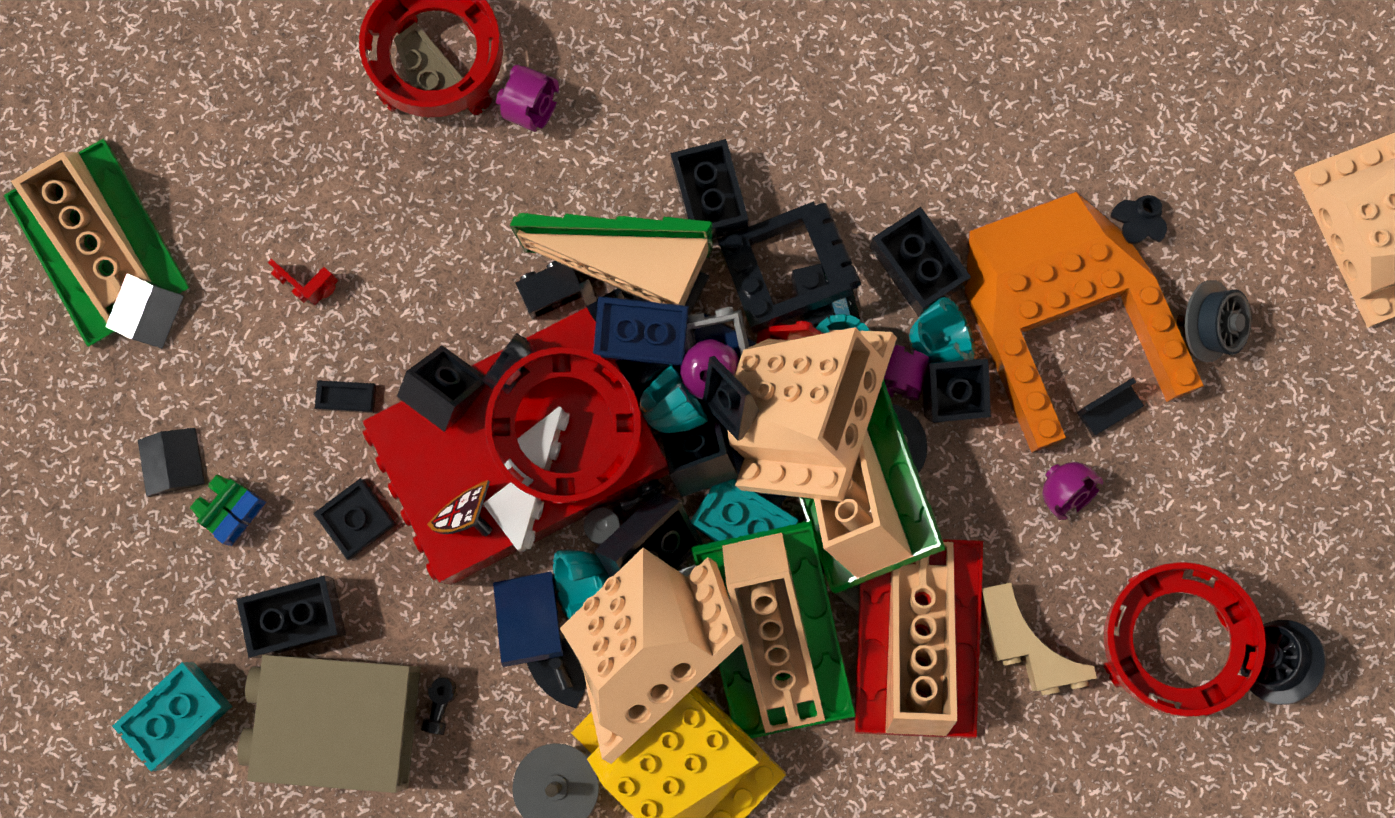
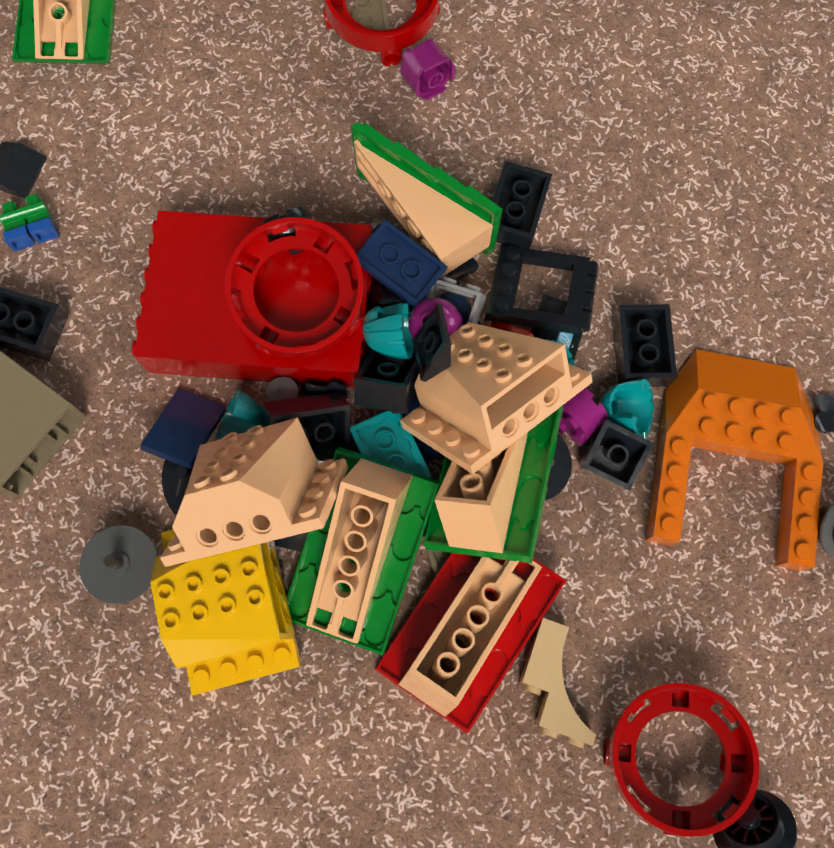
camera: 20 degrees right, 5 degrees down
(144, 311) = (66, 58): black slope -> none
(319, 287) = (192, 112): red bracket -> none
(345, 396) = (163, 196): black tile -> none
(354, 519) = (112, 284): black tile -> none
(441, 387) = (226, 215): black slope -> none
(441, 694) = (86, 444): black leg -> none
(463, 513) = (182, 316): shield -> none
(514, 508) = (224, 337): white slope -> none
(548, 289) = (355, 205): black brick -> none
(1069, 487) = (663, 581): magenta cylinder -> none
(1110, 408) = (728, 542): black panel -> none

